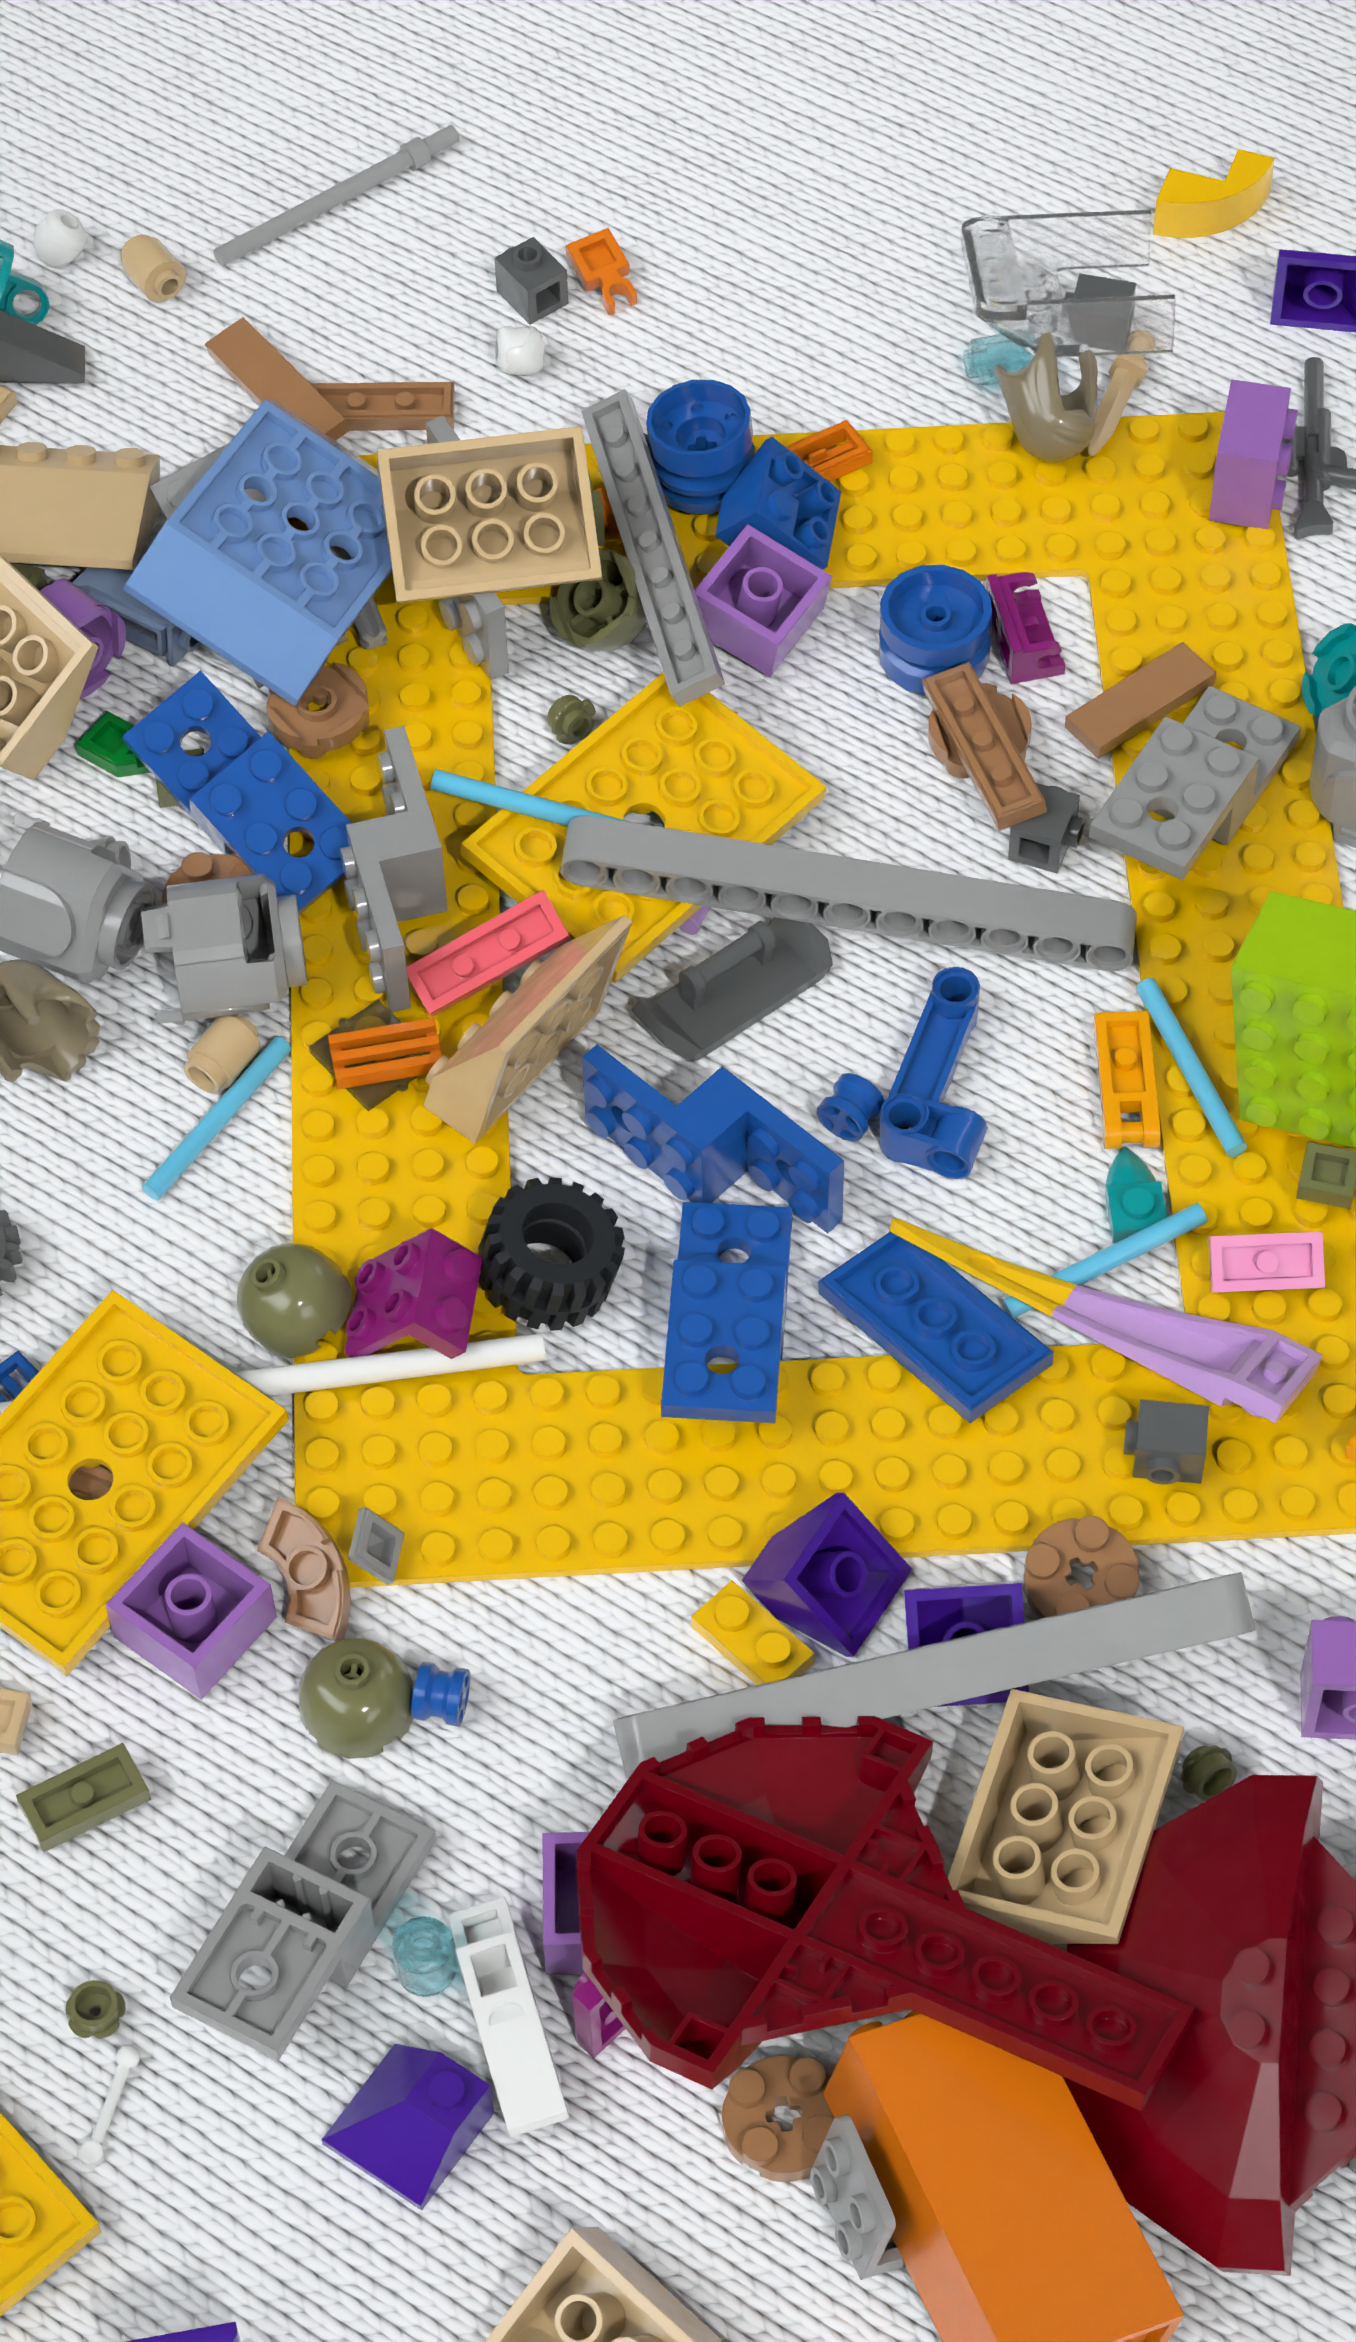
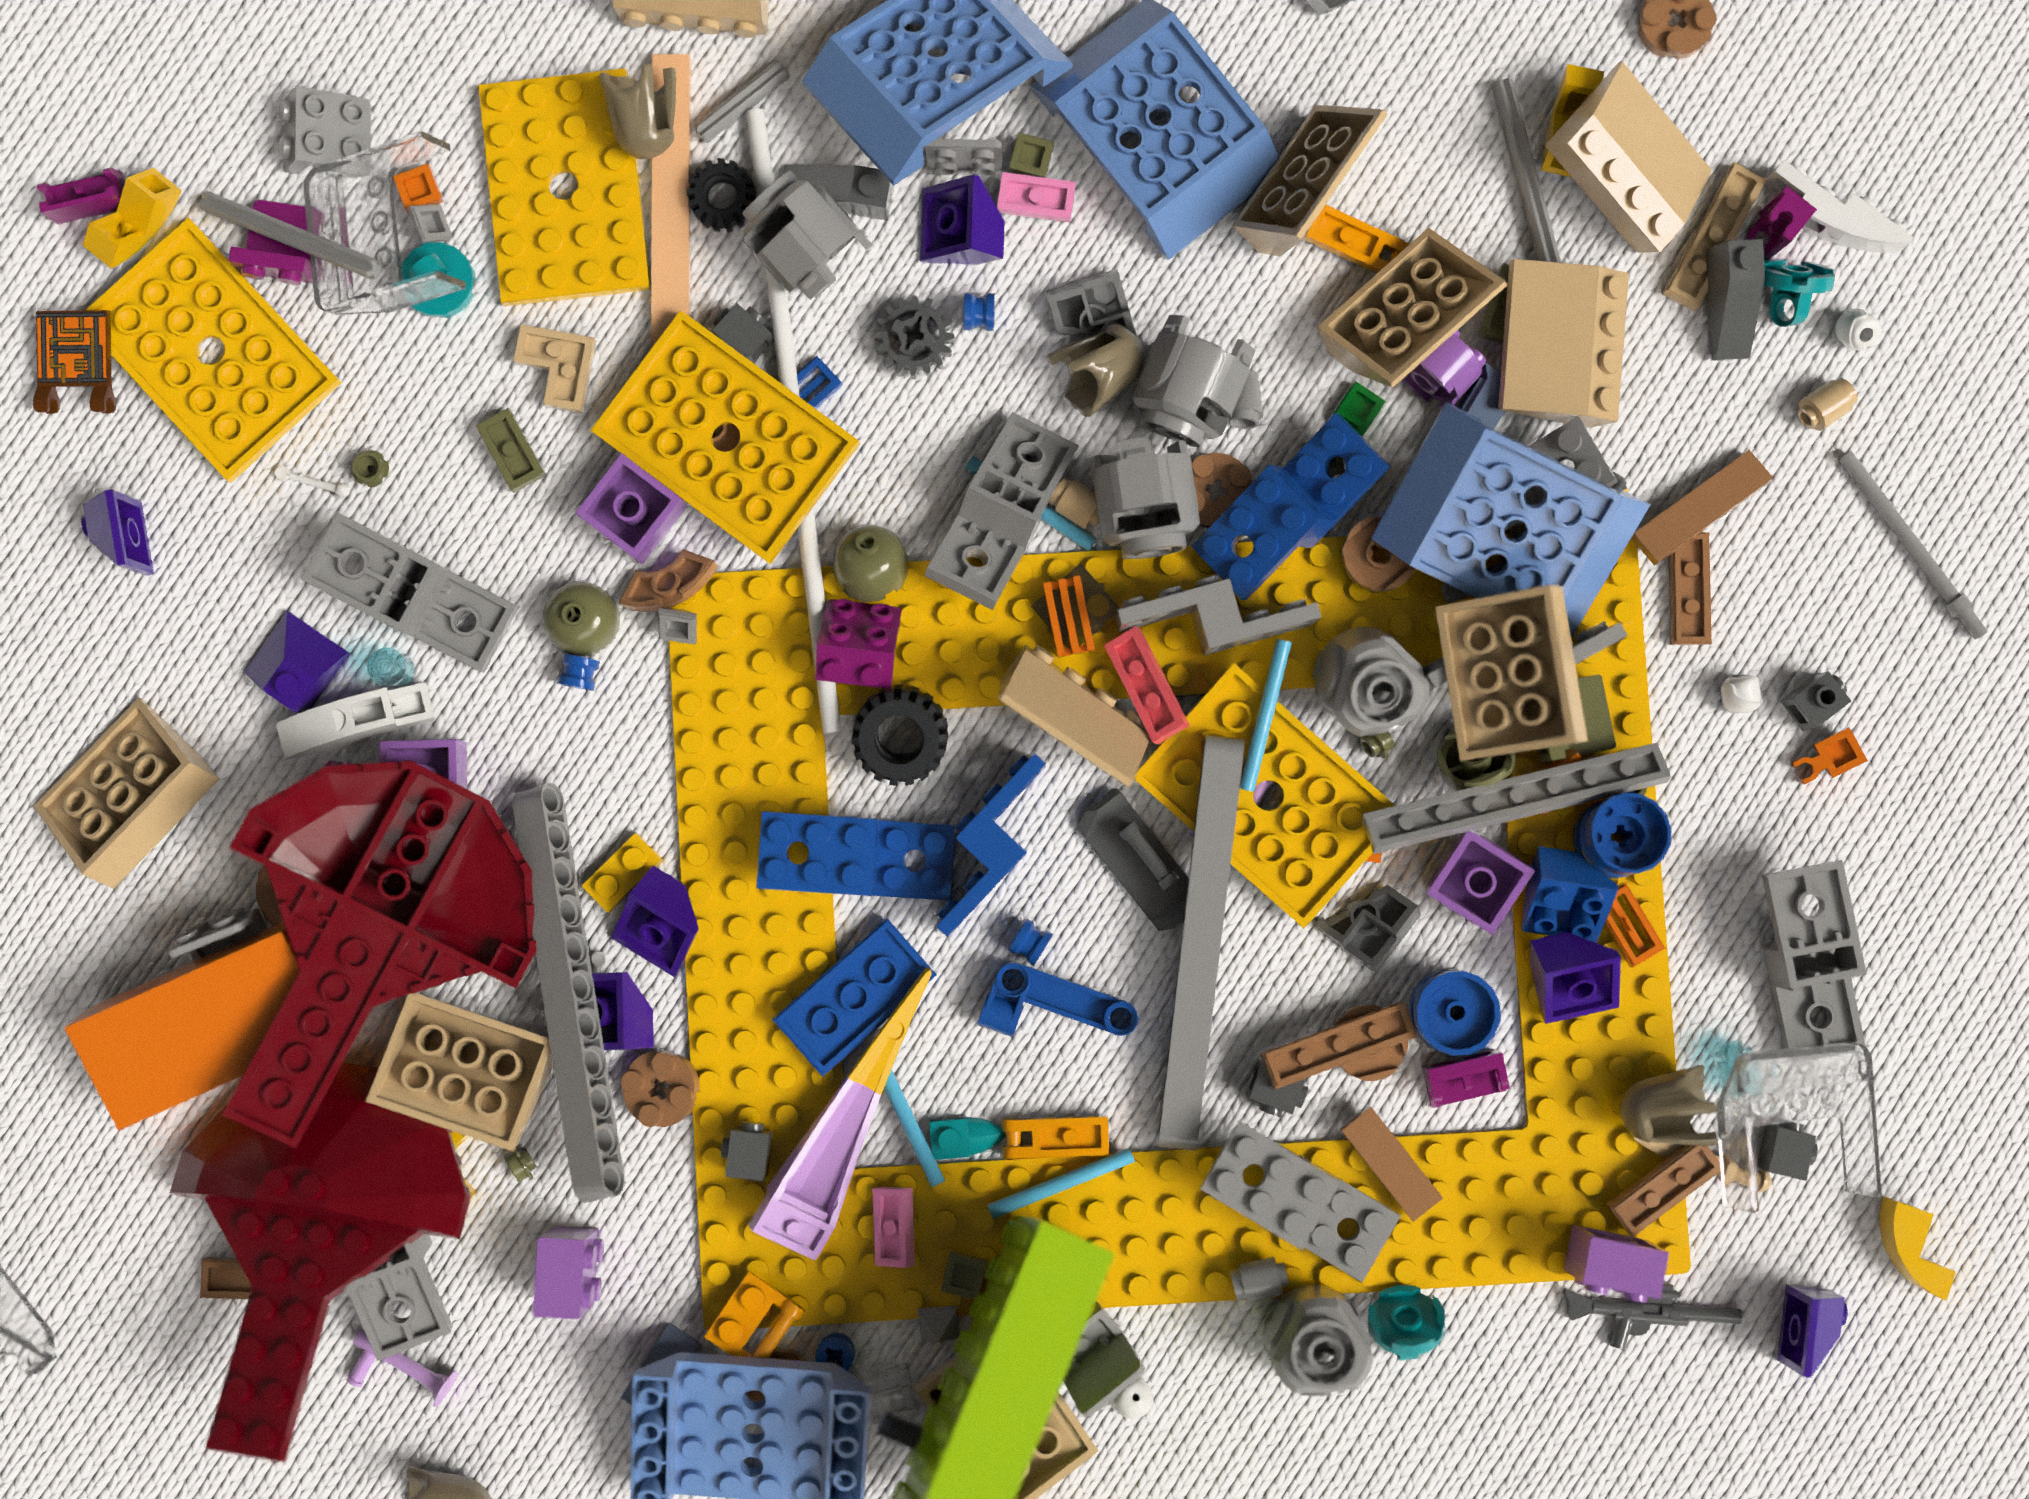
camera: 90 degrees right, 30 degrees up
(229, 1128) = (1001, 510): none -> light grey bracket
(493, 695) = (1364, 663): none -> light grey piece
(823, 727) = (1372, 927): none -> dark grey slope
(849, 262) = (1814, 955): none -> light grey bracket
(883, 505) = (1574, 976): none -> dark purple slope
(1154, 424) = (1664, 1187): none -> medium nougat tile
(1306, 836) = (1259, 1279): none -> light grey brick

